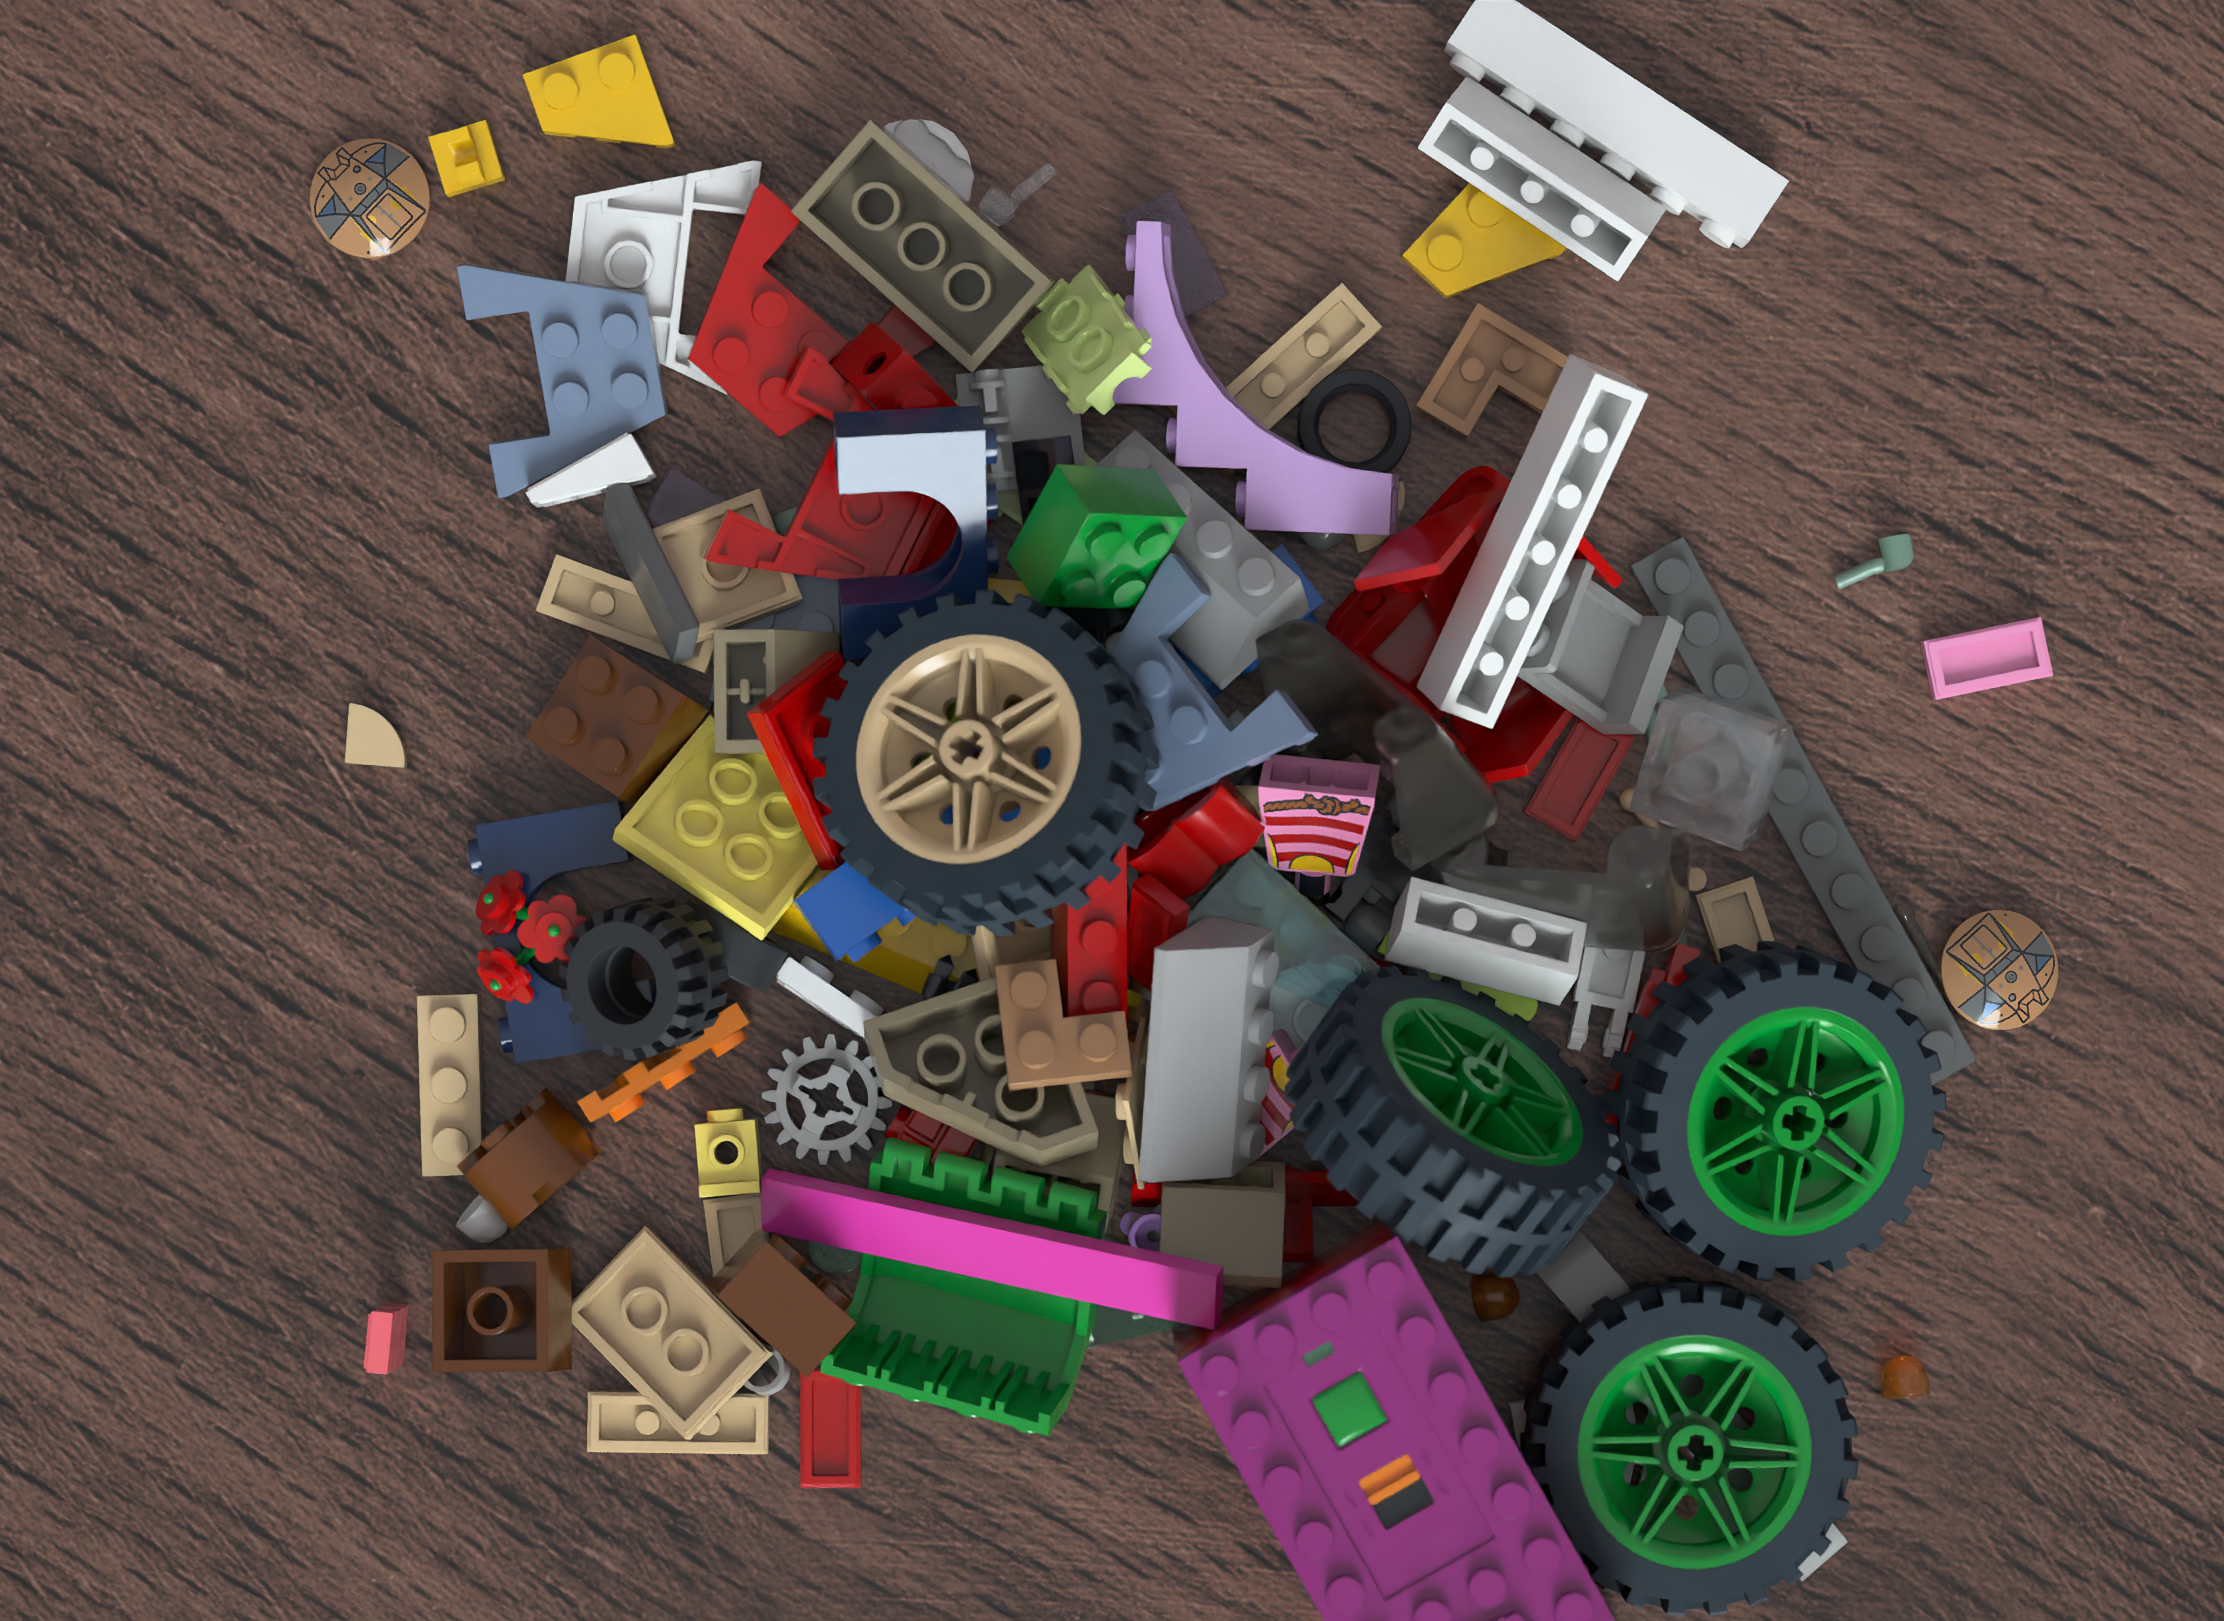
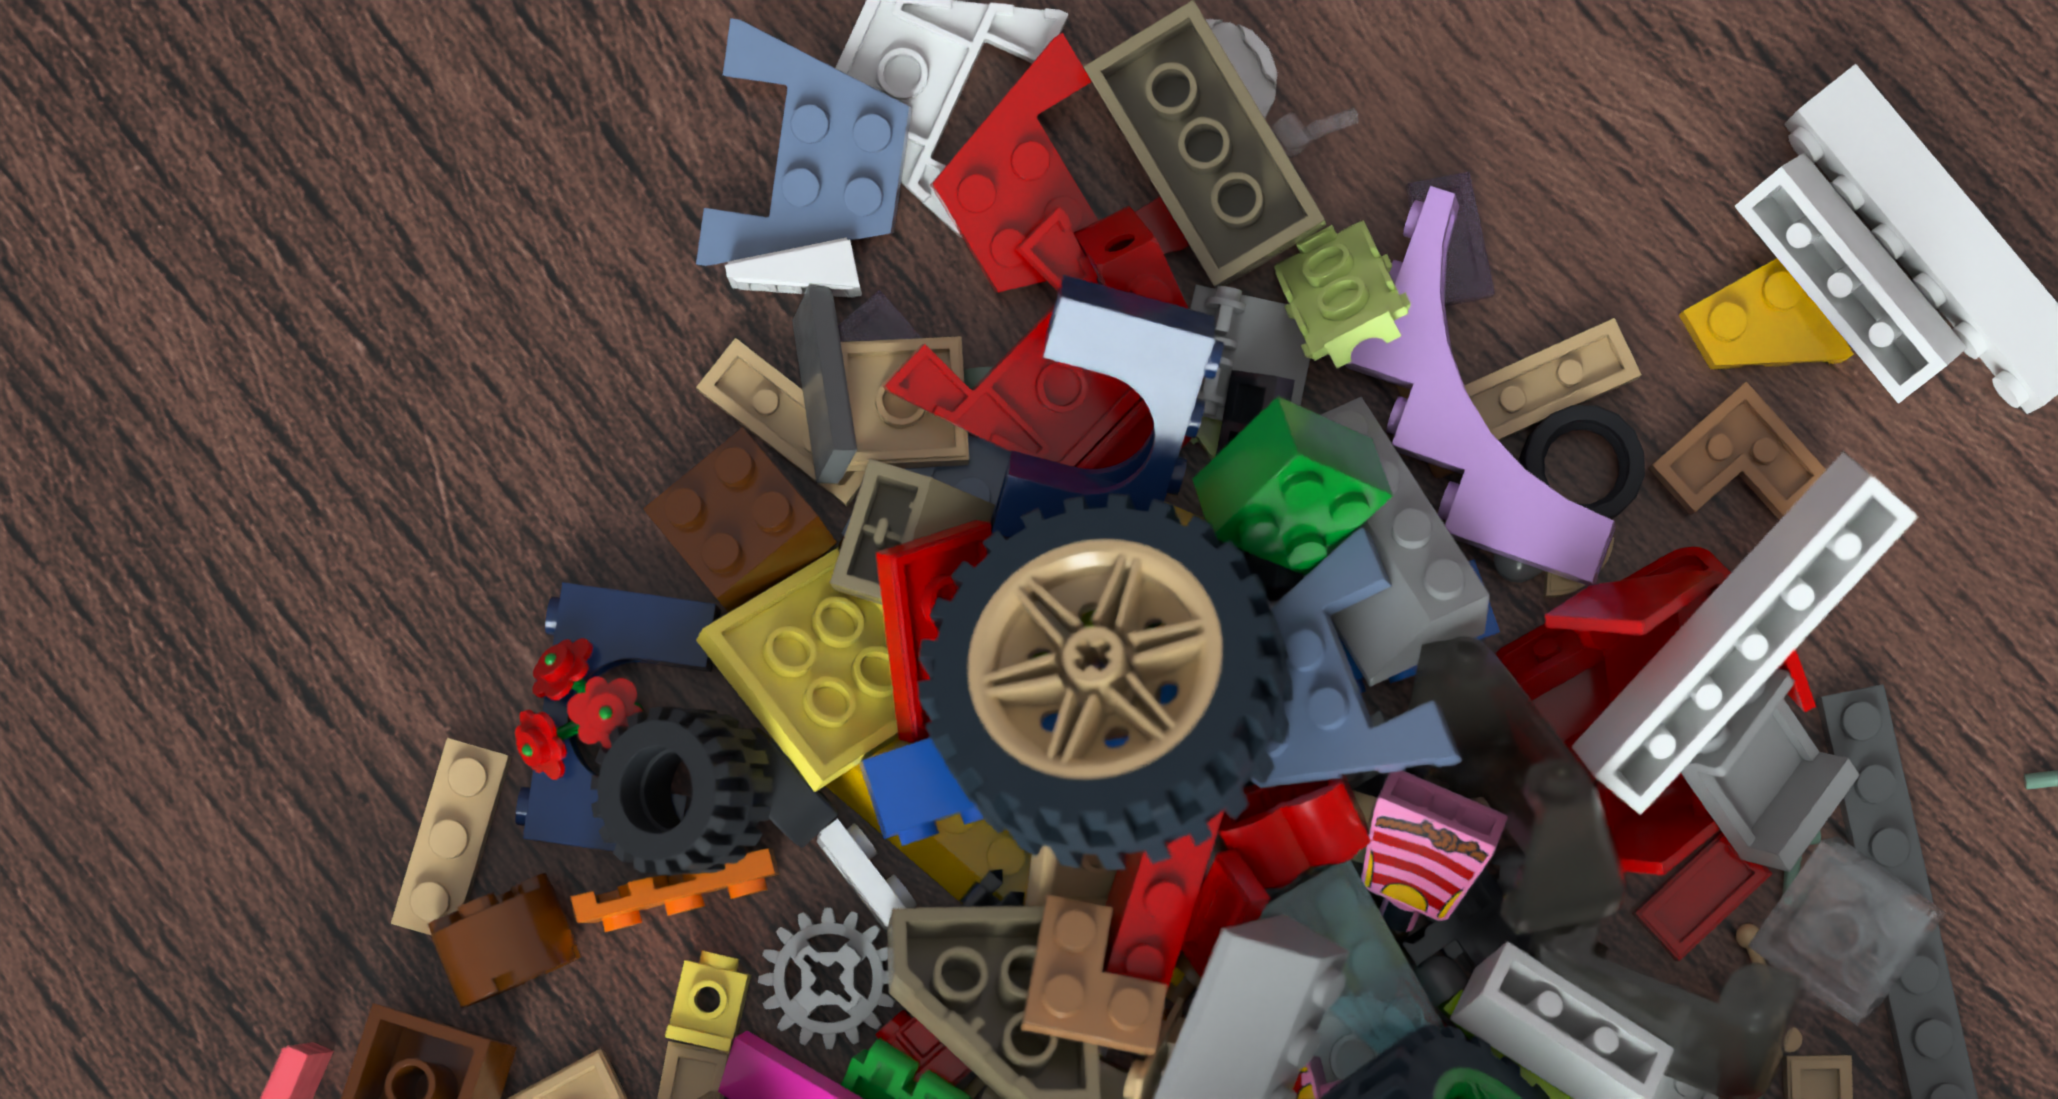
camera: 25 degrees right, 5 degrees down
(373, 739) = (490, 465): tan tile -> none
(481, 1222) = (434, 990): white hinge -> none

